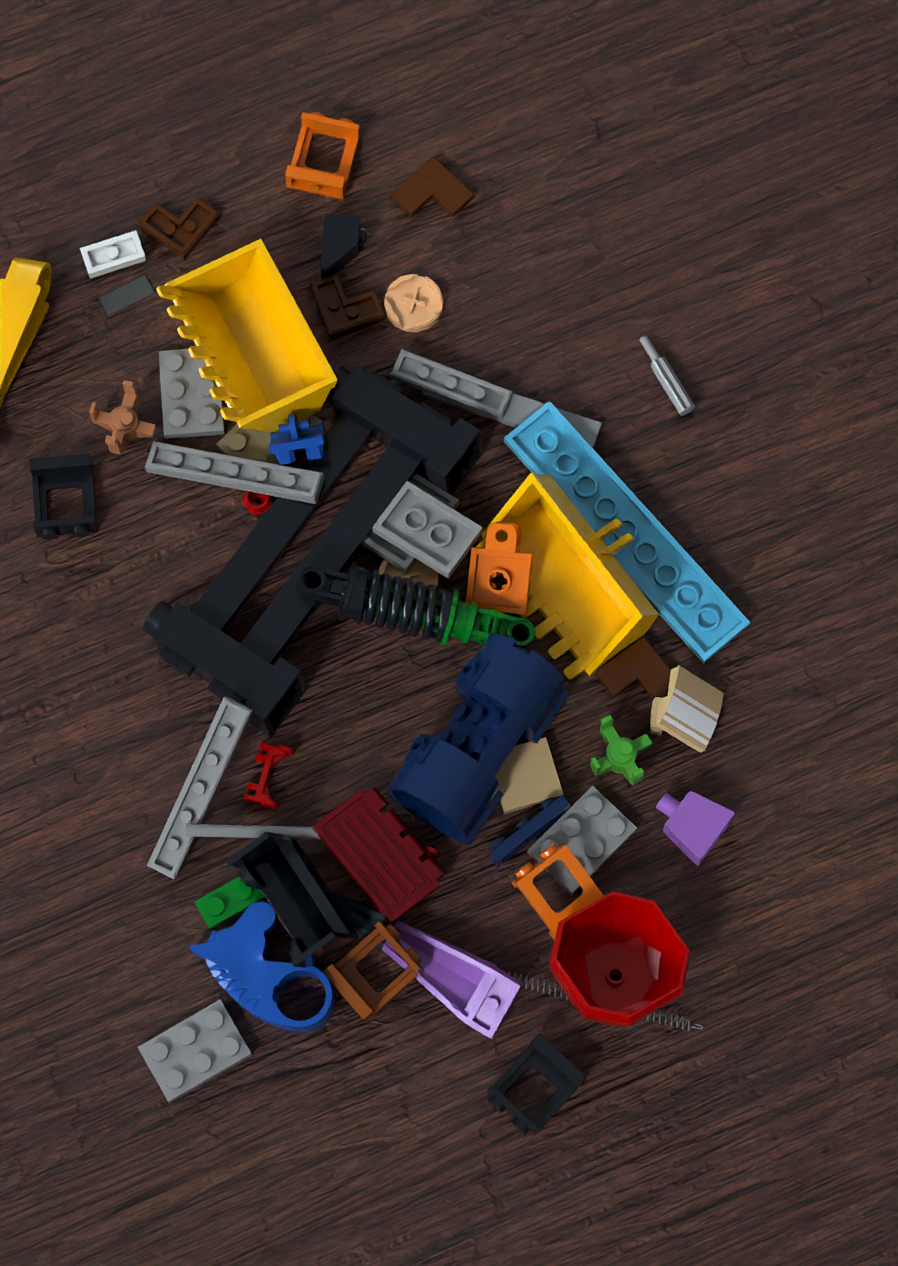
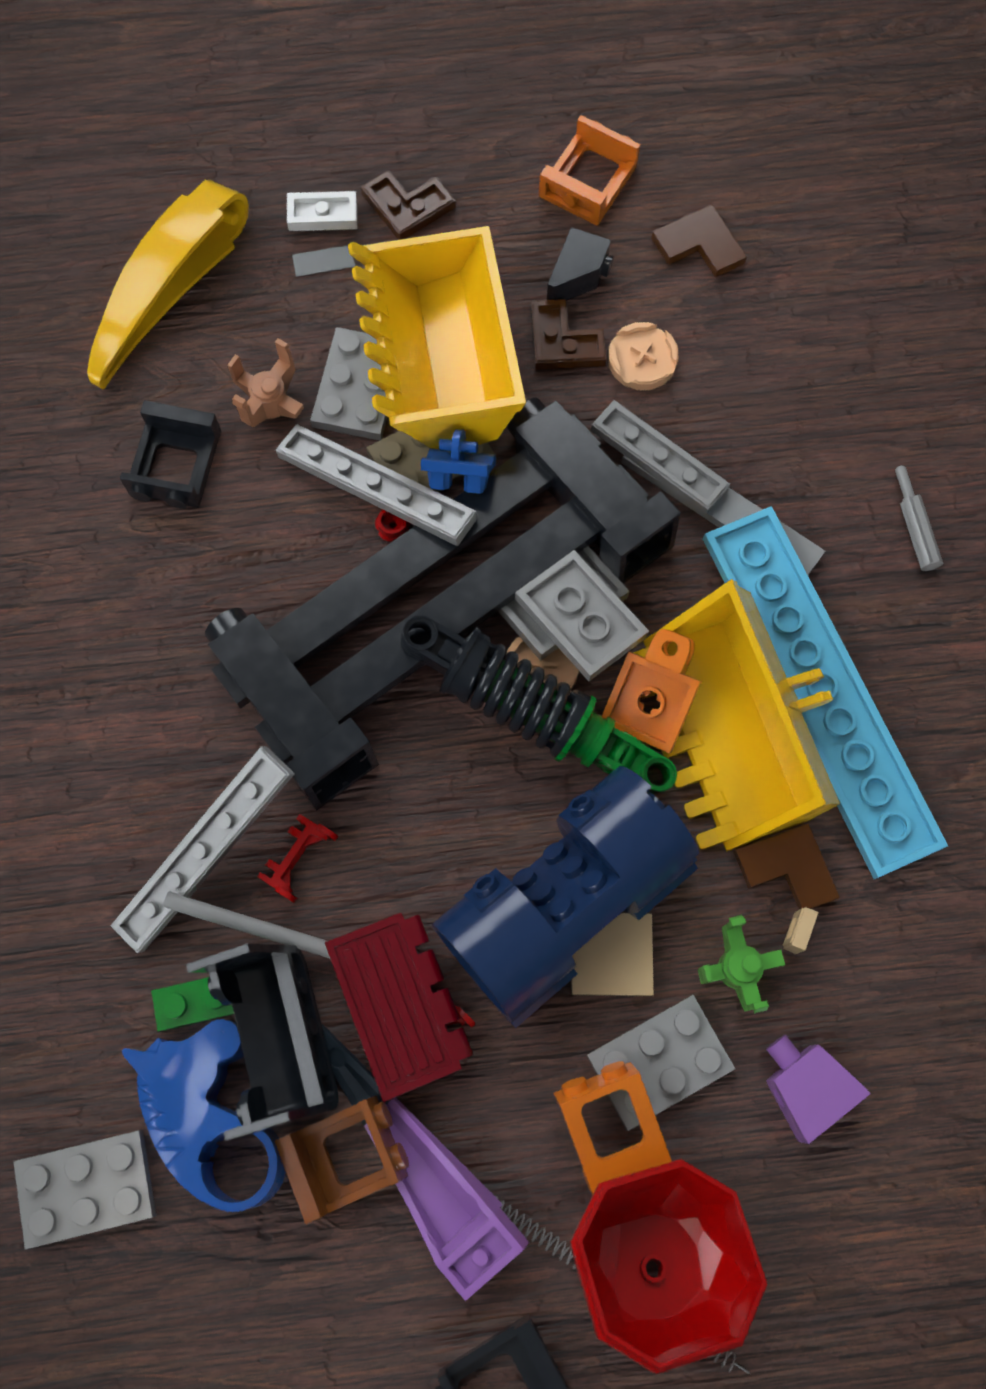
camera: 15 degrees right, 0 degrees up
(528, 830) = (595, 1028): dark blue plate -> none
(689, 709) = (844, 936): tan slope -> none

